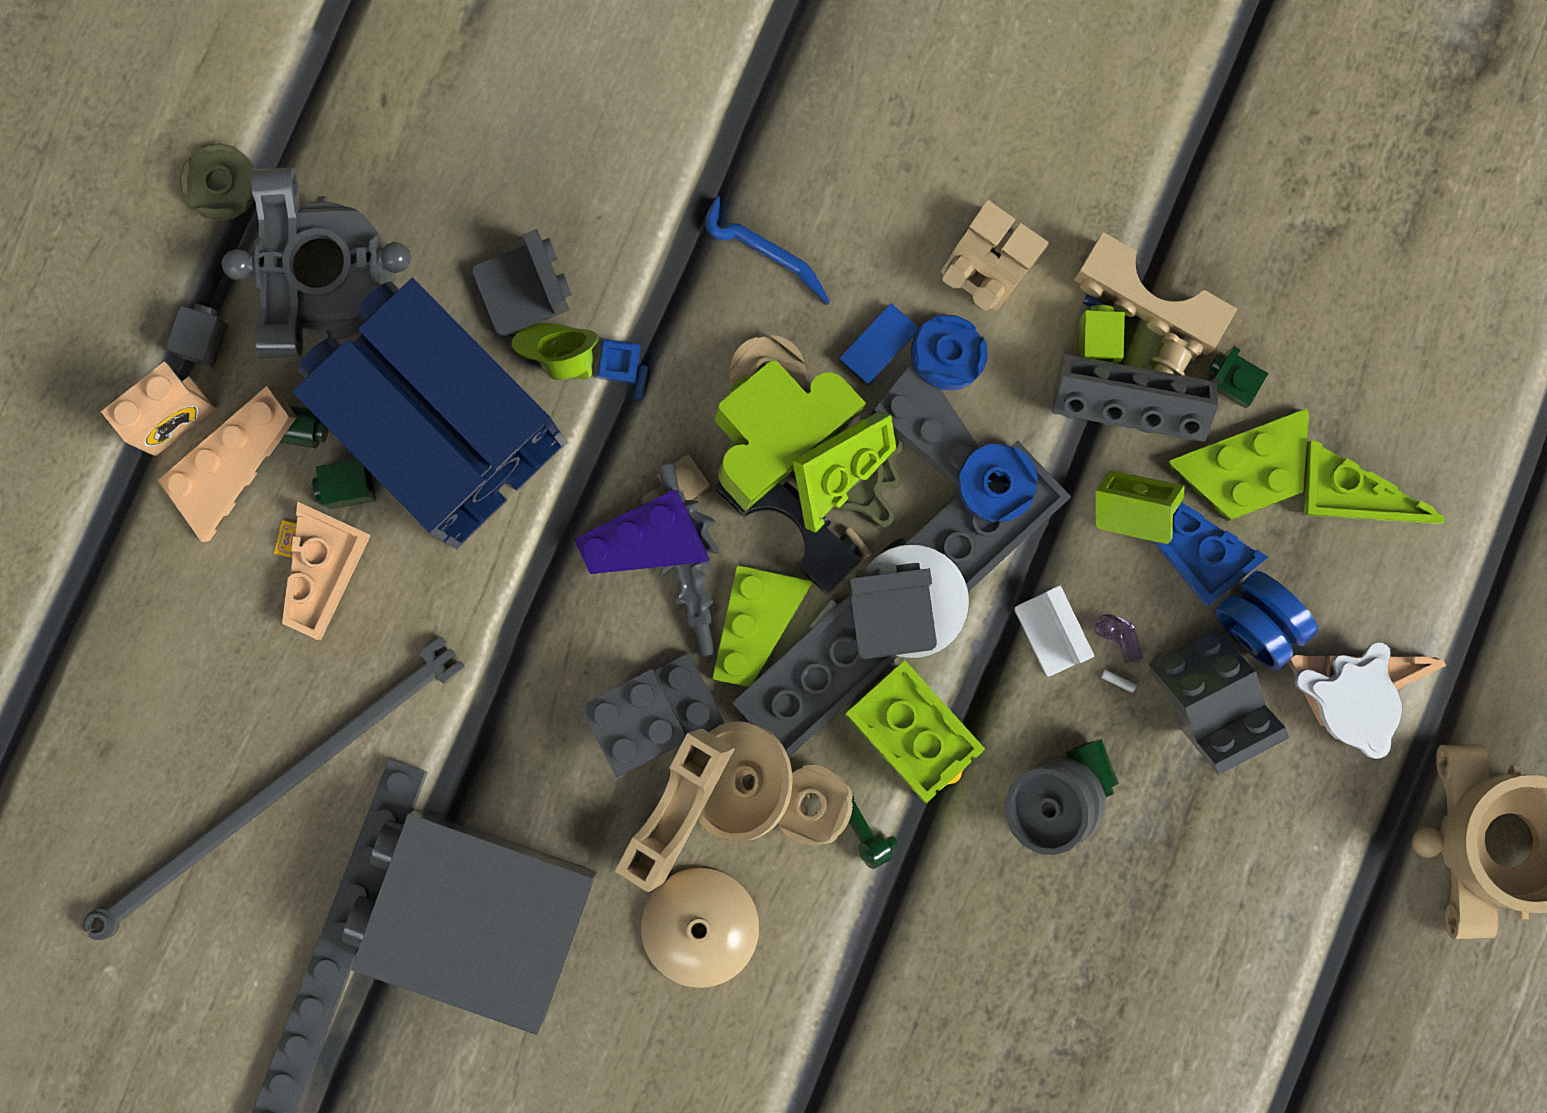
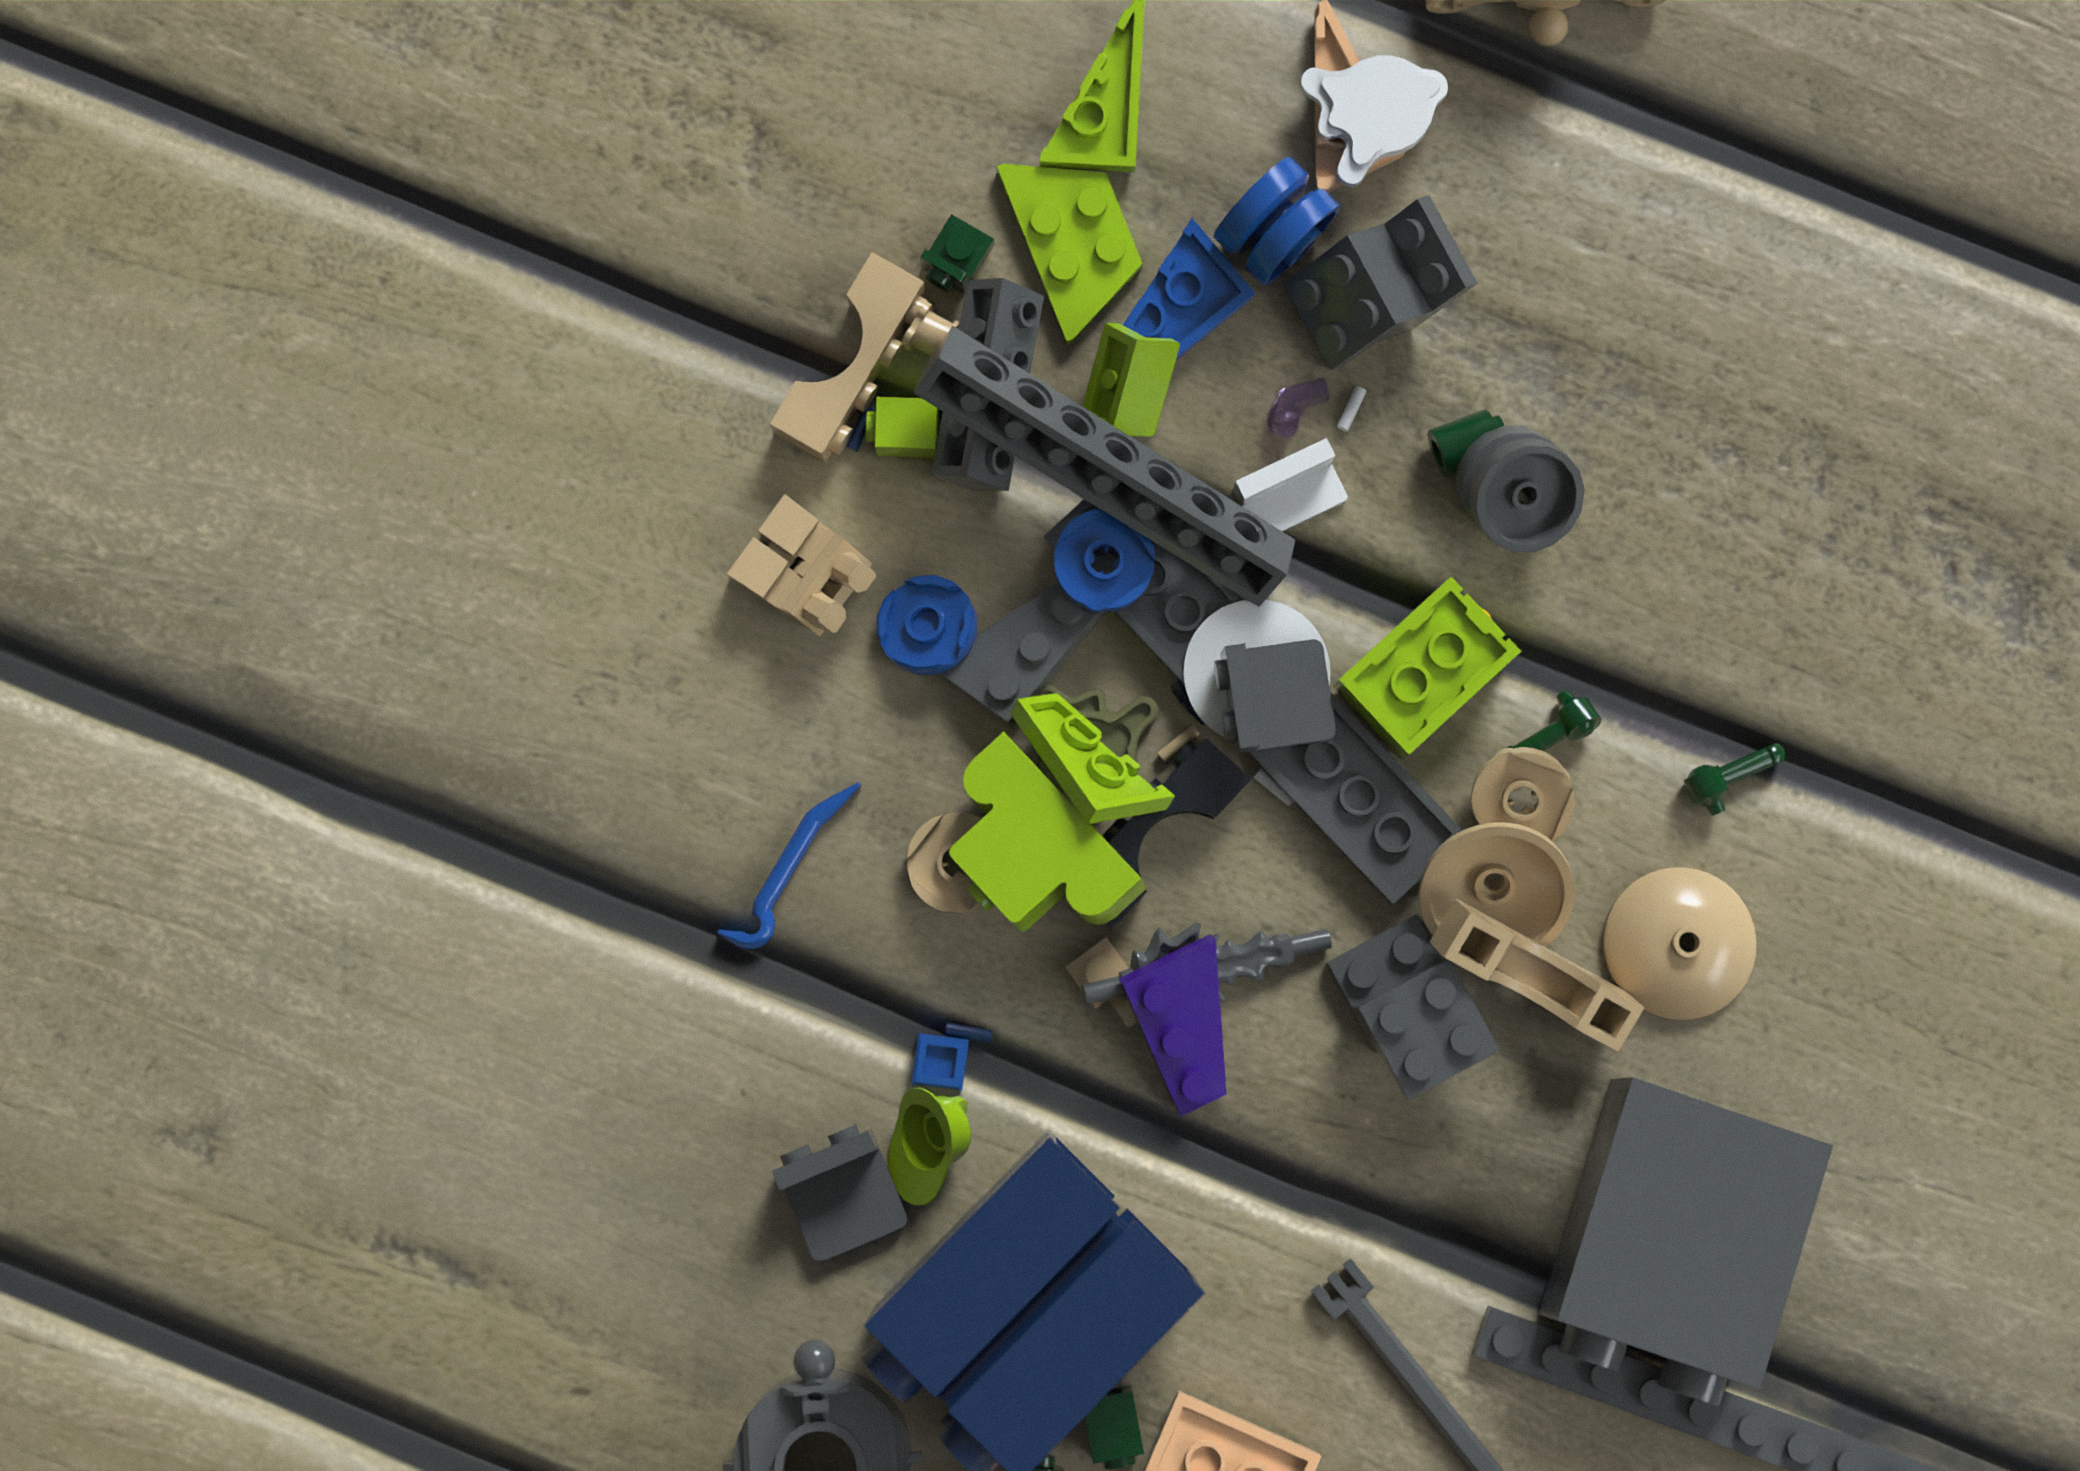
camera: 90 degrees left, 0 degrees up
(754, 622) = (1285, 877): lime wing -> none
(823, 954) = (1709, 784): none -> dark green piece
(879, 344) = (915, 716): blue tile -> none
(1070, 480) = (1105, 466): none -> dark grey brick

